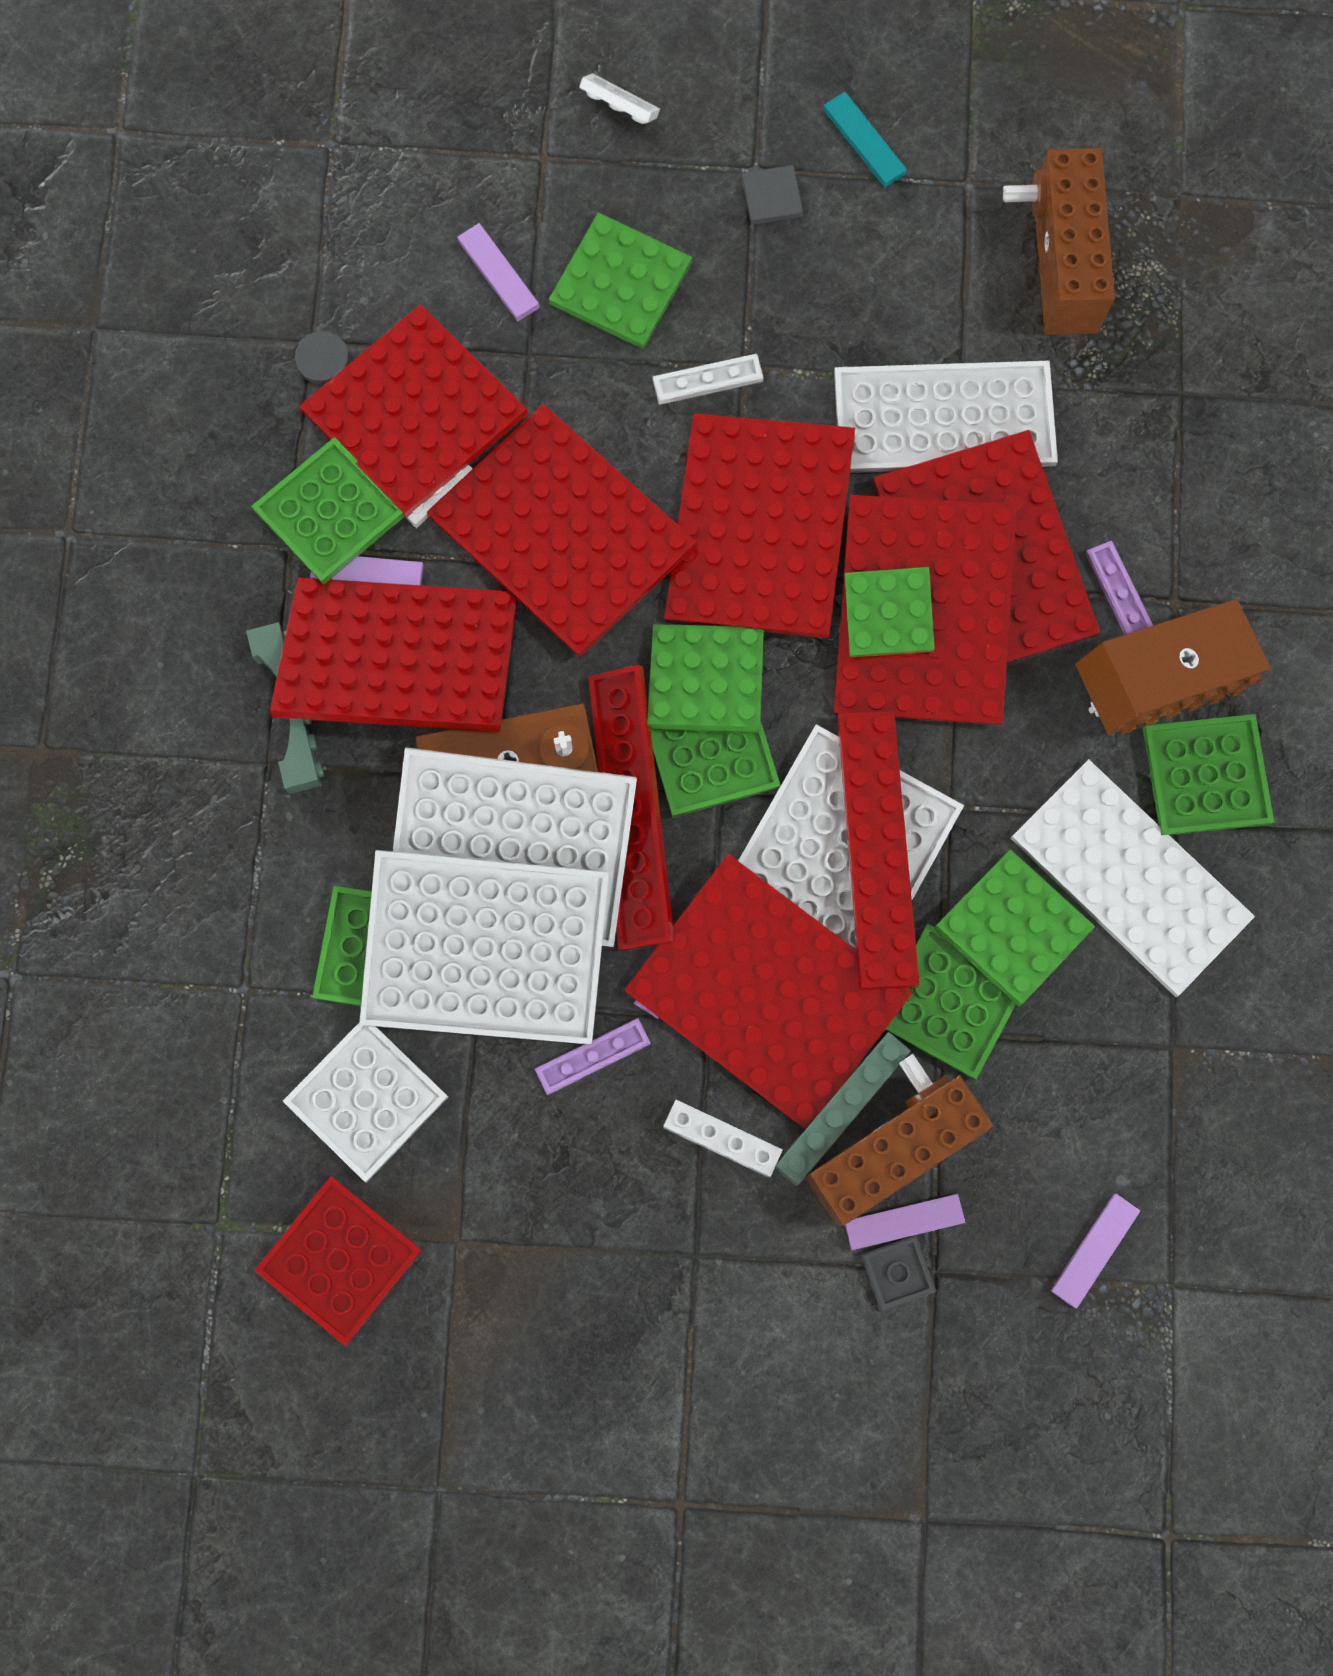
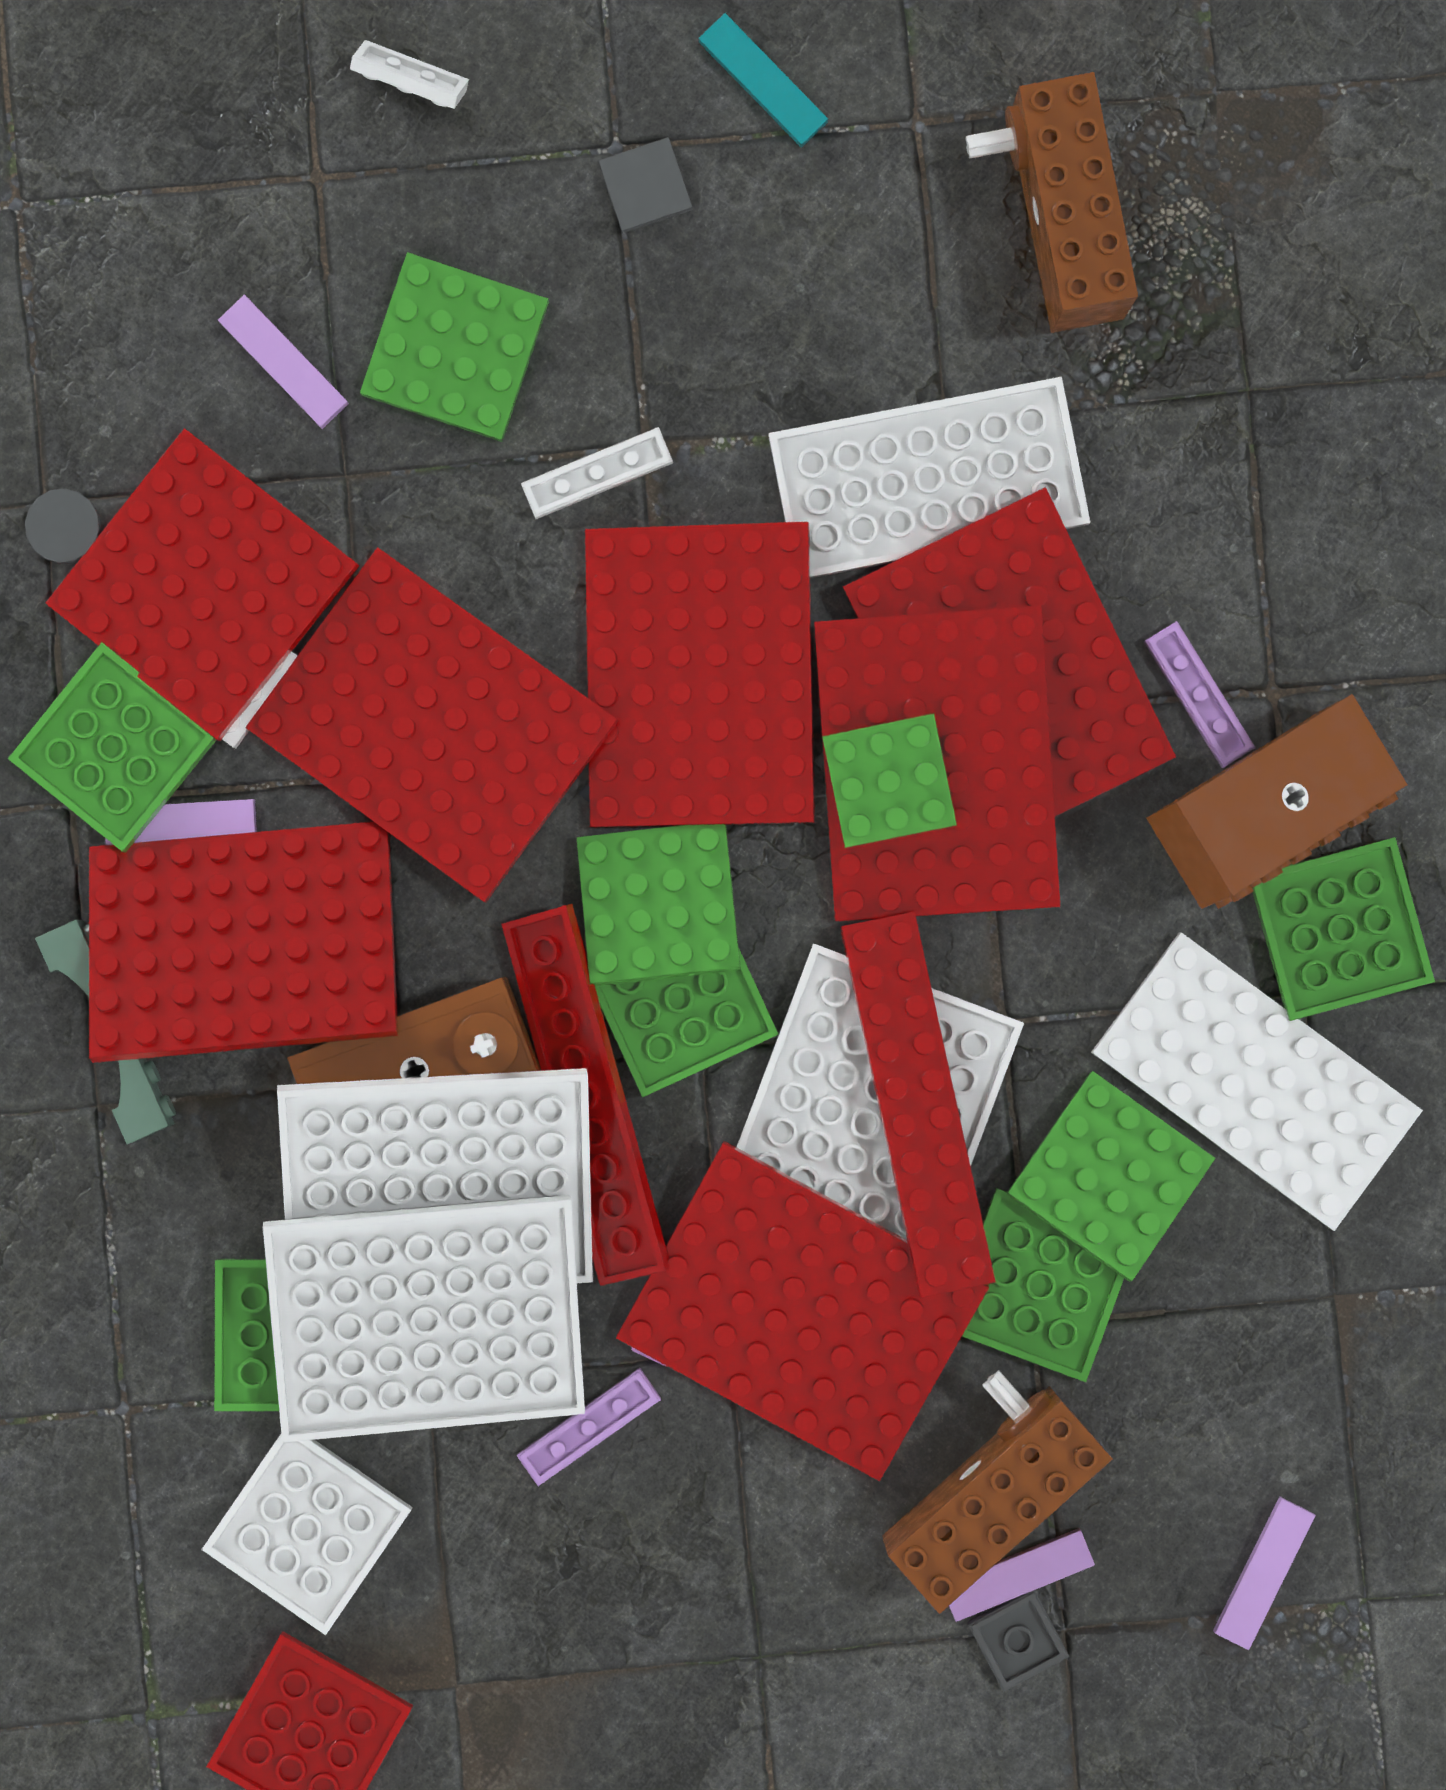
camera: 10 degrees left, 10 degrees up
(722, 1138) = (771, 1509): white brick -> none
(842, 1109) = (919, 1449): sand green arch -> none

